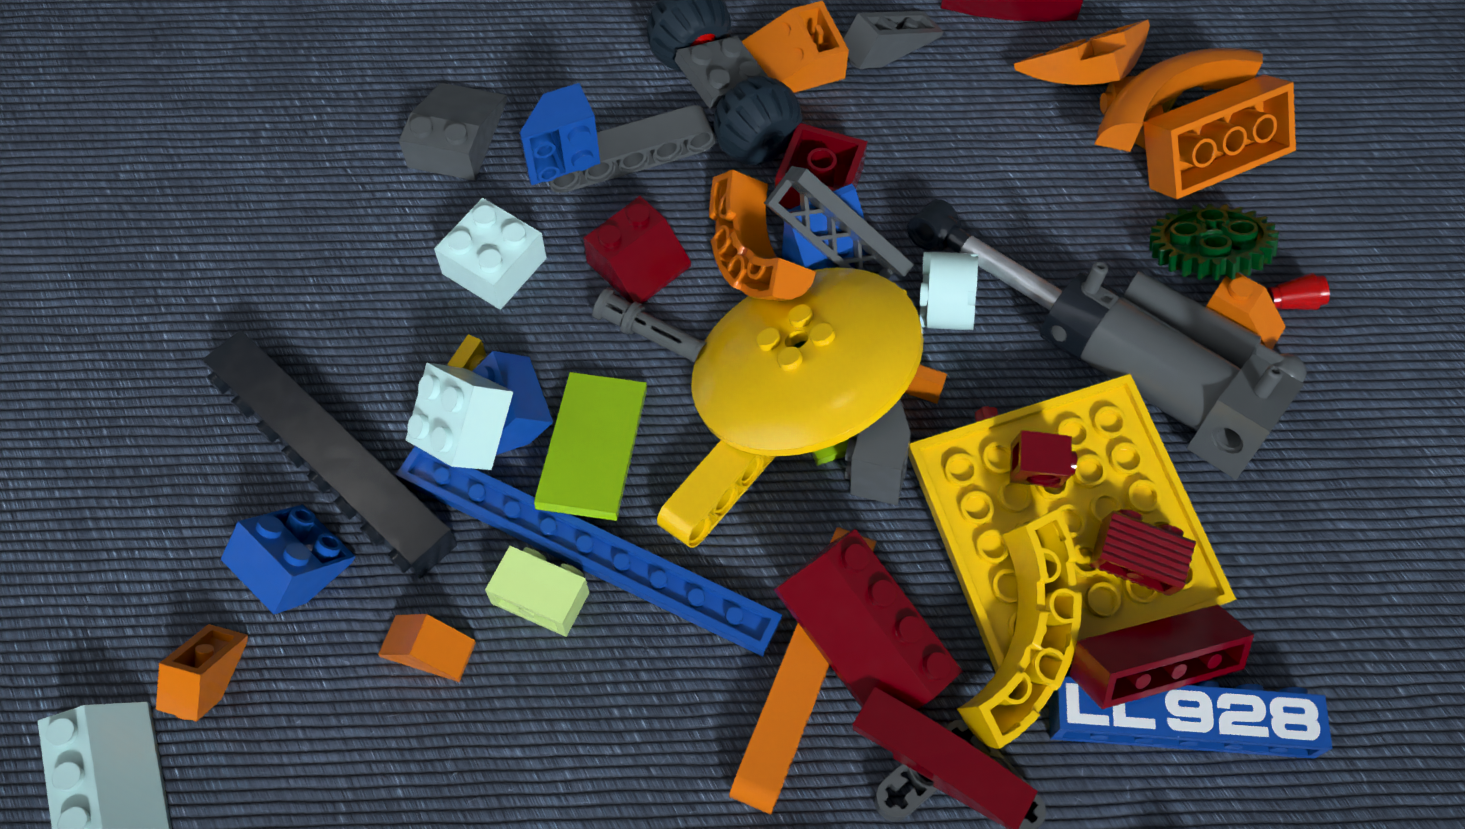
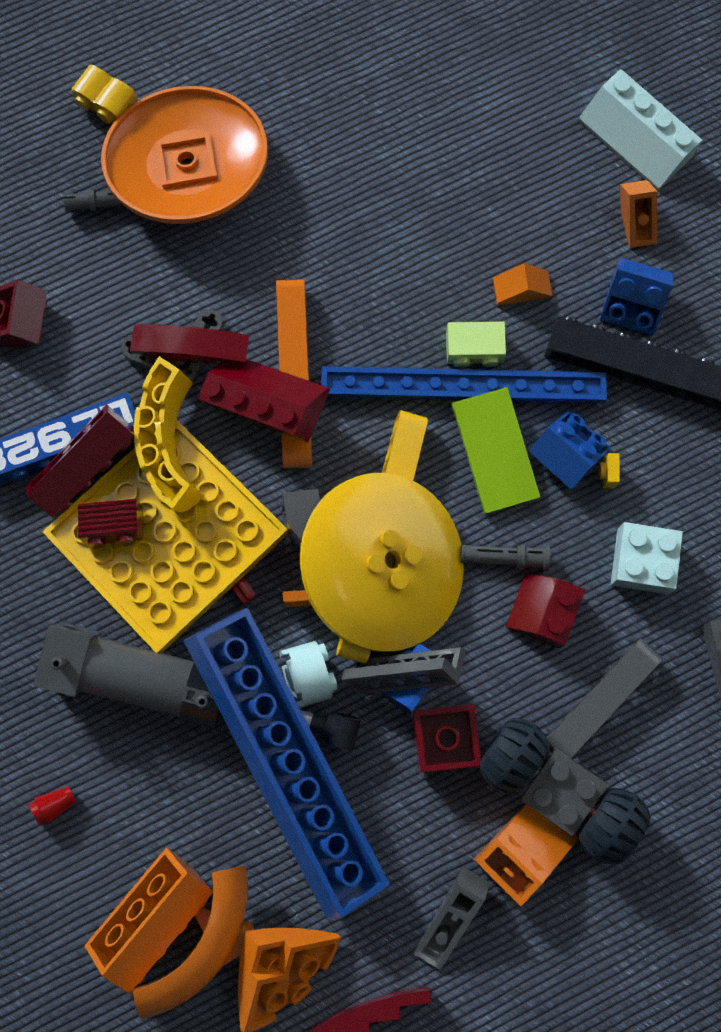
camera: 155 degrees right, 15 degrees up
(458, 416) = (585, 413): light aqua brick -> none
(560, 135) = (648, 655): blue slope -> none
(743, 243) = (456, 626): orange brick -> none
(1021, 208) = (287, 763): none -> blue brick
(1042, 459) = (195, 551): dark red brick -> none
(1207, 326) = (111, 737): dark grey piece -> none
(1213, 241) = (112, 835): dark green gear -> none
(1248, 306) = (88, 765): orange slope -> none

